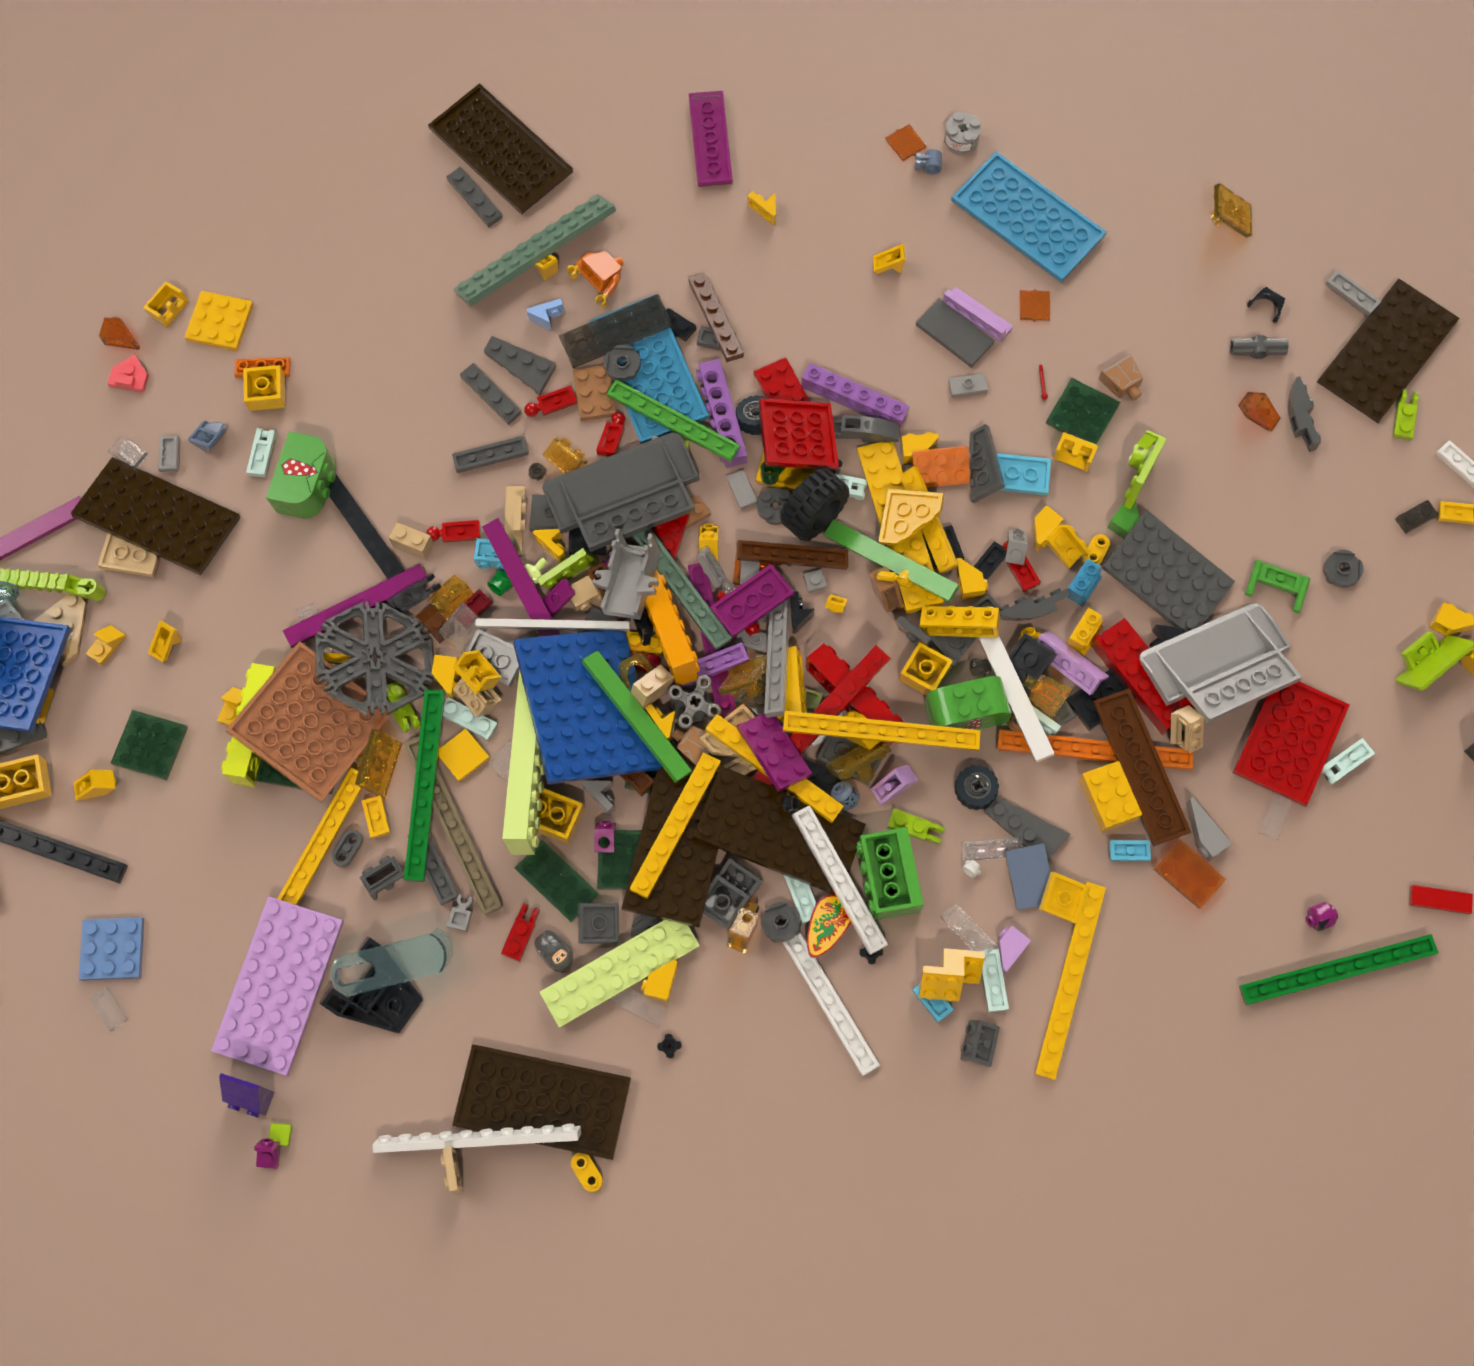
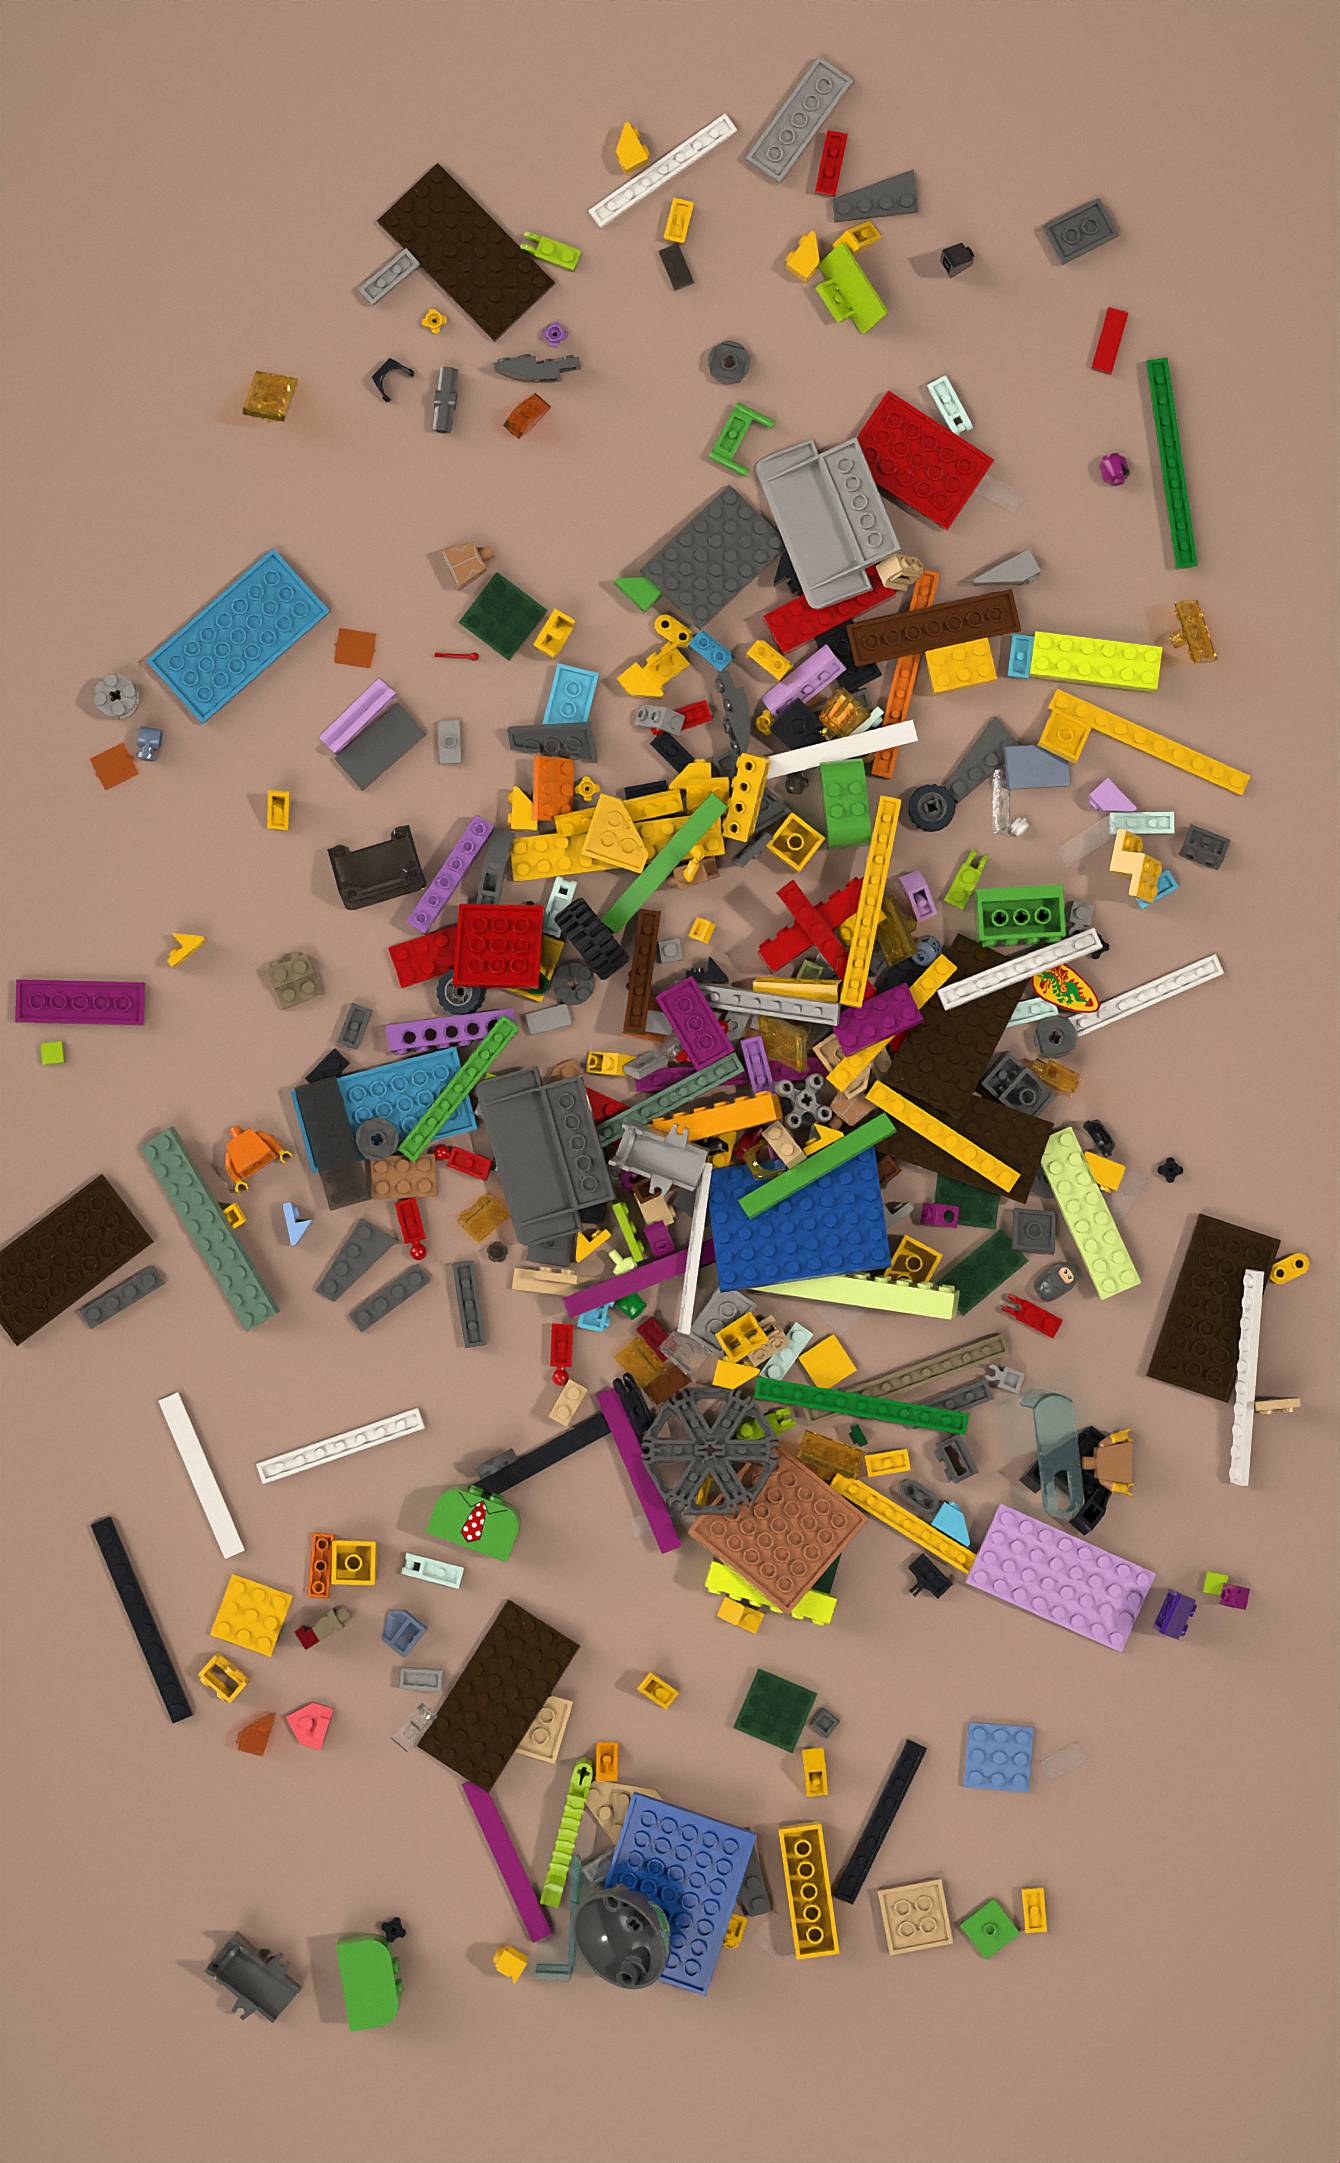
camera: 85 degrees left, 15 degrees up
(99, 608) = (607, 1761): none -> light orange slope
(107, 641) = (648, 1757): yellow slope -> none
(139, 790) = (825, 1722): none -> dark grey tile
(207, 369) = (326, 1626): none -> dark tan hips
(211, 241) = (142, 1620): none -> black plate
(273, 865) = (928, 1577): none -> black plate
(323, 880) = (952, 1522): none -> medium azure slope
(332, 270) = (201, 1475): none -> white tile
(357, 491) = (496, 1463): none -> dark grey plate
(364, 371) = (340, 1446): none -> white tile
(386, 1018) = (1113, 1462): none -> medium nougat torso
(398, 787) = (857, 1435): none -> dark green plate
(667, 125) = (52, 1053): none -> lime tile
(702, 967) = (1105, 1149): none -> black helmet
(715, 317) = (327, 1024): plate -> none
(749, 290) = (294, 980): none -> dark tan plate
(790, 803) = (934, 1010): black plate -> none
(847, 338) = (378, 870): none -> clear smoke windscreen
(897, 934) = (1081, 916): none -> light grey plate
(950, 494) = (593, 788): none -> yellow plate
(964, 595) = (700, 788): none -> yellow plate
(1137, 919) = (1095, 662): none -> neon yellow brick
(1143, 462) = (577, 560): lime plate -> none
(1183, 1007) = (1193, 632): none -> clear yellow plate
(1189, 874) = (1053, 597): clear orange plate -> none
(1326, 327) = (440, 320): none -> yellow plate
(1338, 422) = (554, 328): none -> medium lavender plate

